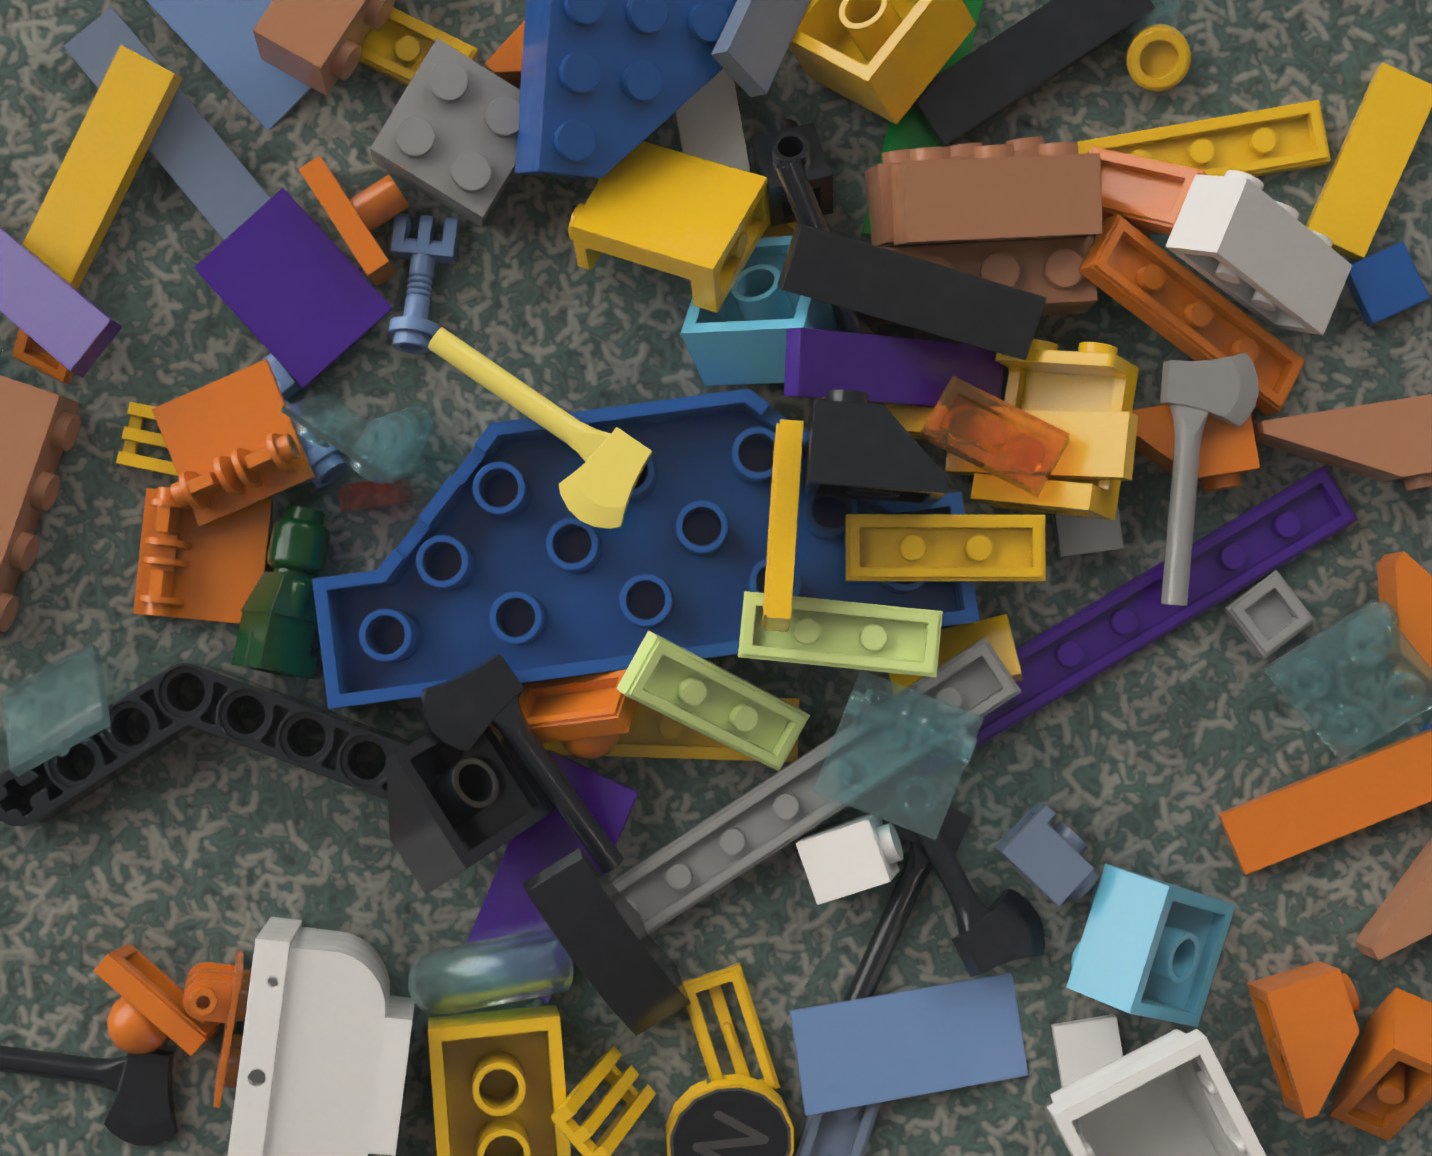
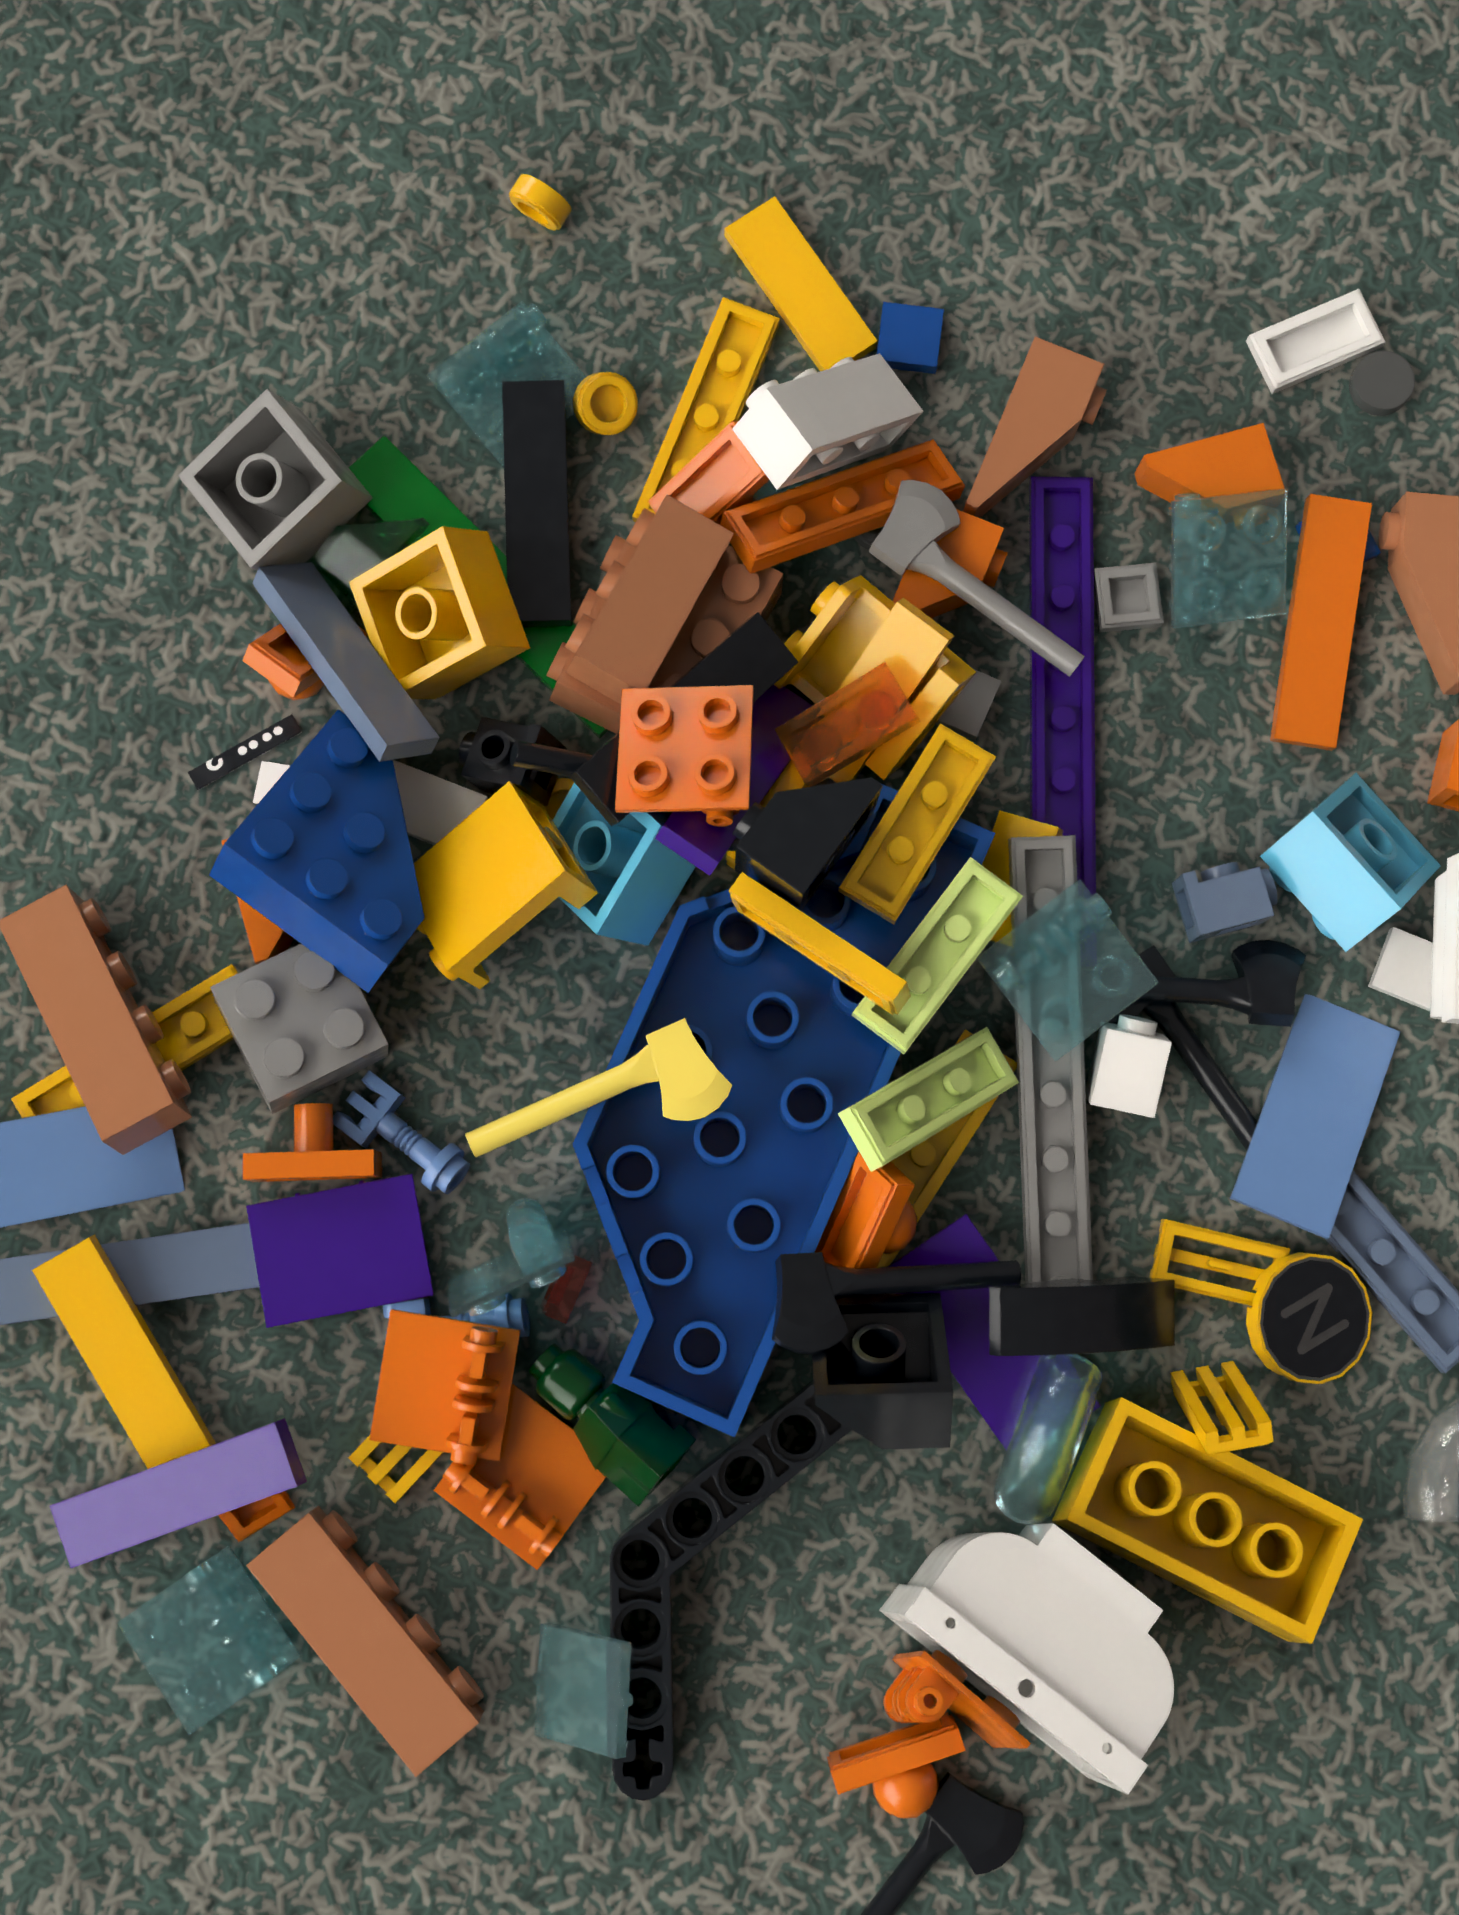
camera: 65 degrees left, 5 degrees down
(878, 307) = (685, 751): none -> orange hinge

